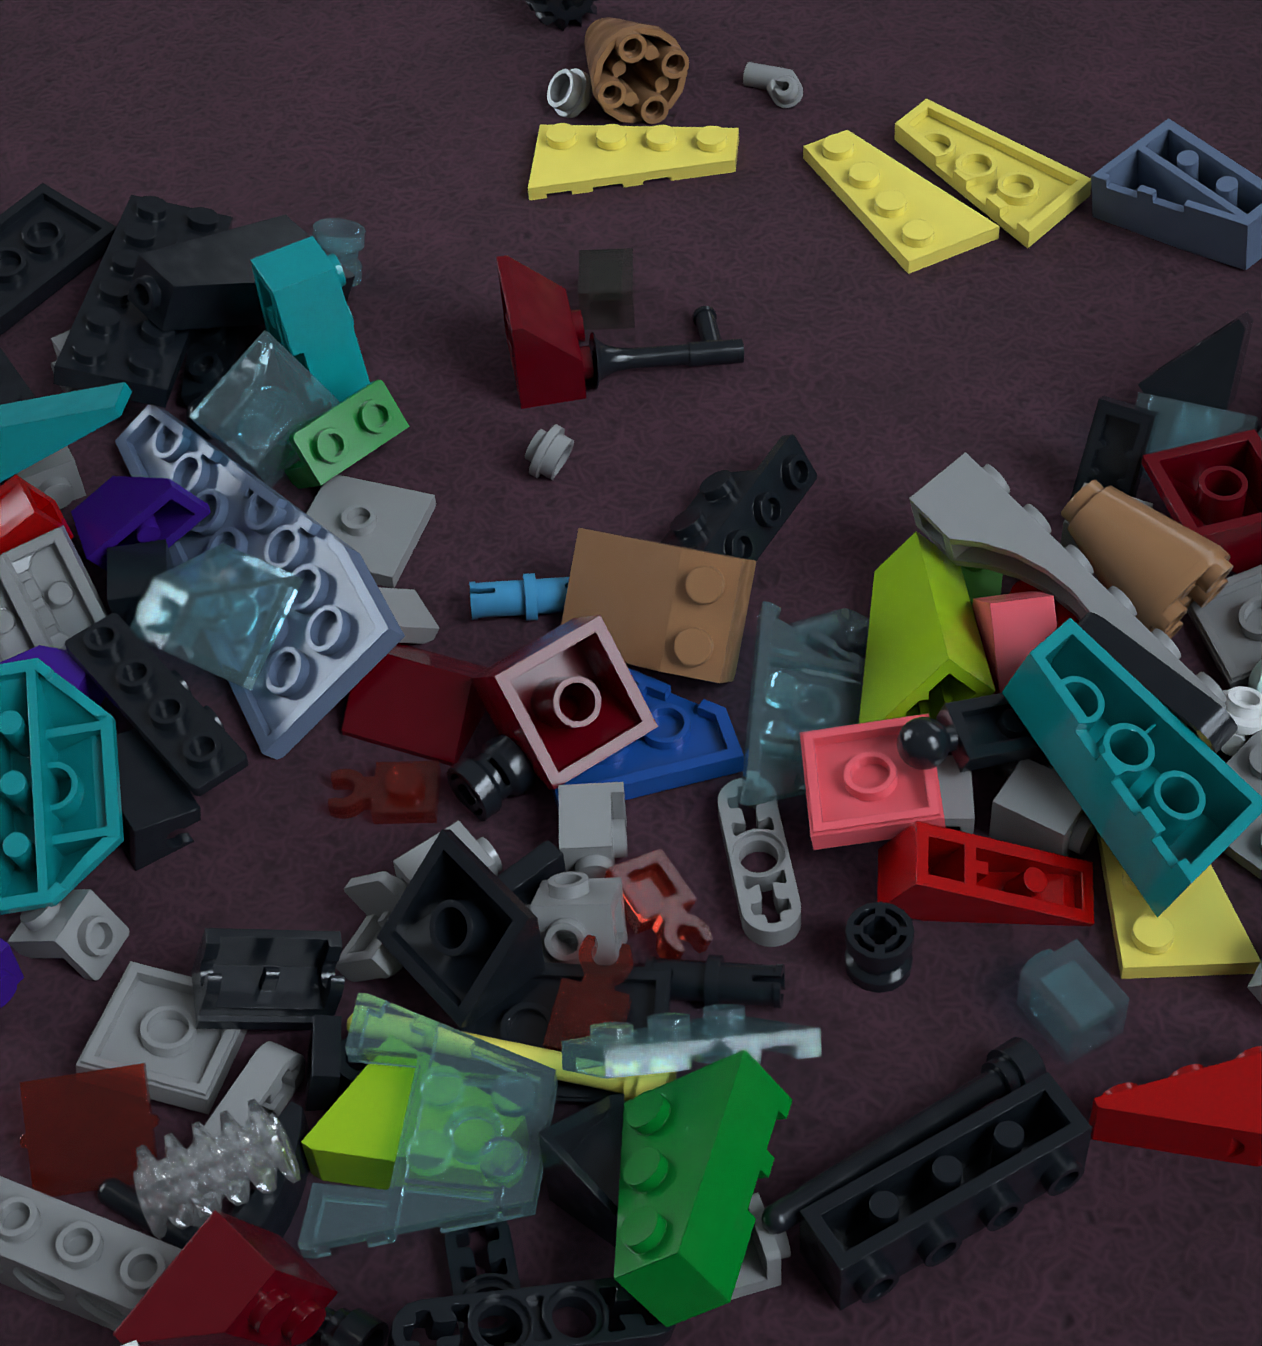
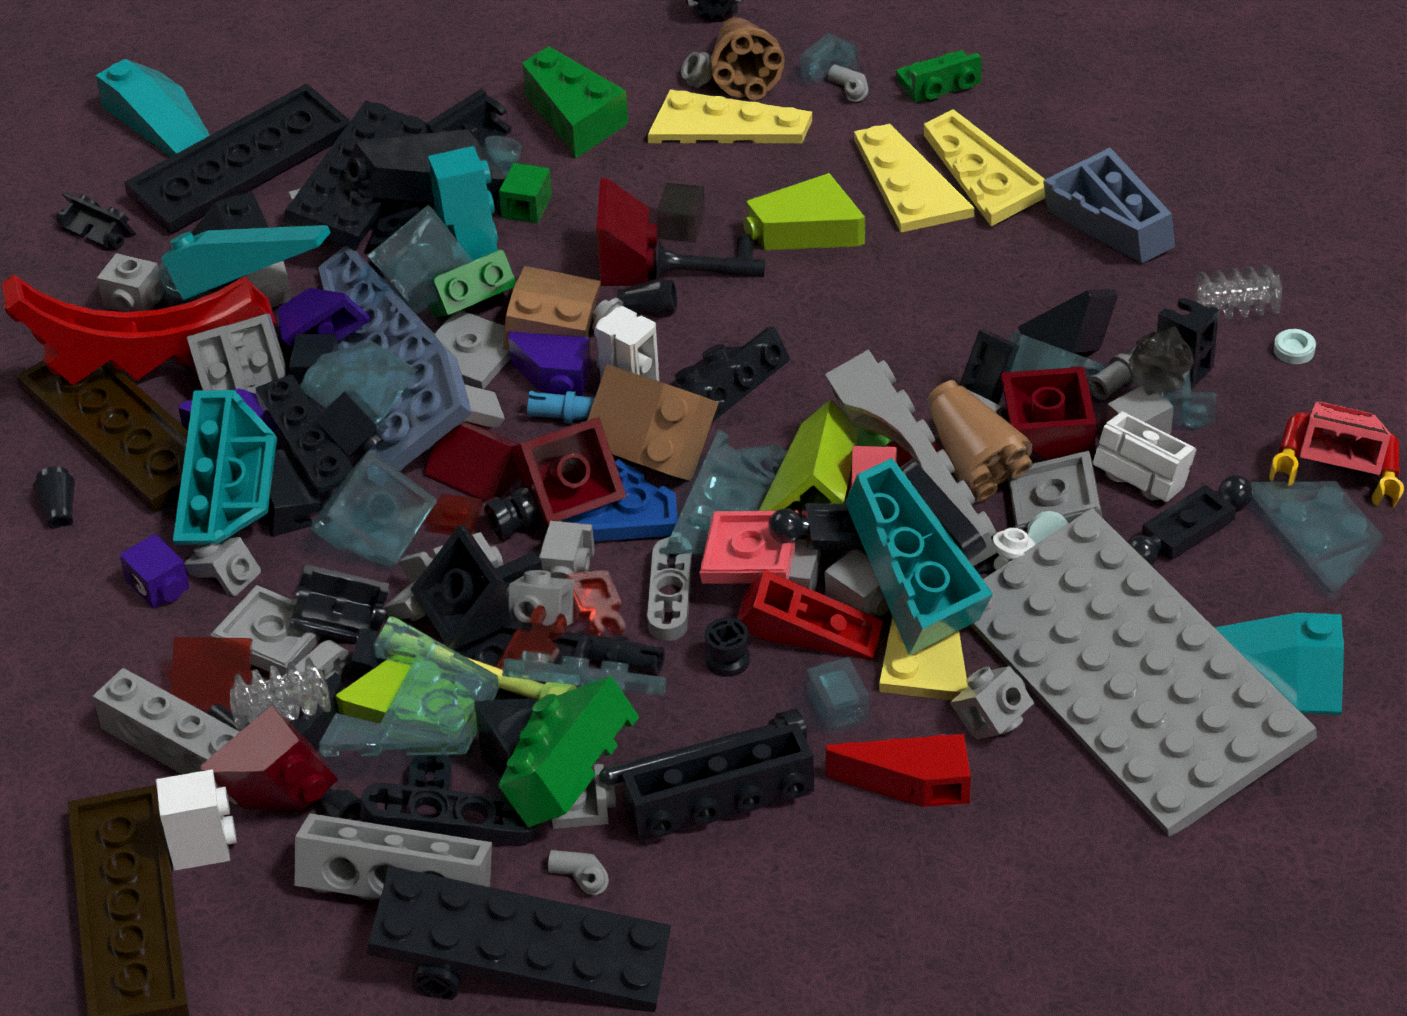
camera: 10 degrees right, 5 degrees down
(224, 678) = (352, 424): none -> black brick
(284, 192) = (473, 113): none -> black hinge
(286, 812) = (374, 512): none -> clear light blue slope
(383, 292) = (525, 193): none -> green brick
(415, 155) = (574, 99): none -> green wedge
(467, 463) = (551, 304): none -> medium nougat slope
(486, 532) = (552, 361): none -> dark purple slope
(596, 493) = (627, 343): none -> white brick
(598, 416) = (650, 297): none -> black cone
(734, 49) = (824, 54): none -> clear light blue bracket
(780, 271) = (805, 216): none -> lime slope
(890, 58) = (940, 75): none -> green bracket

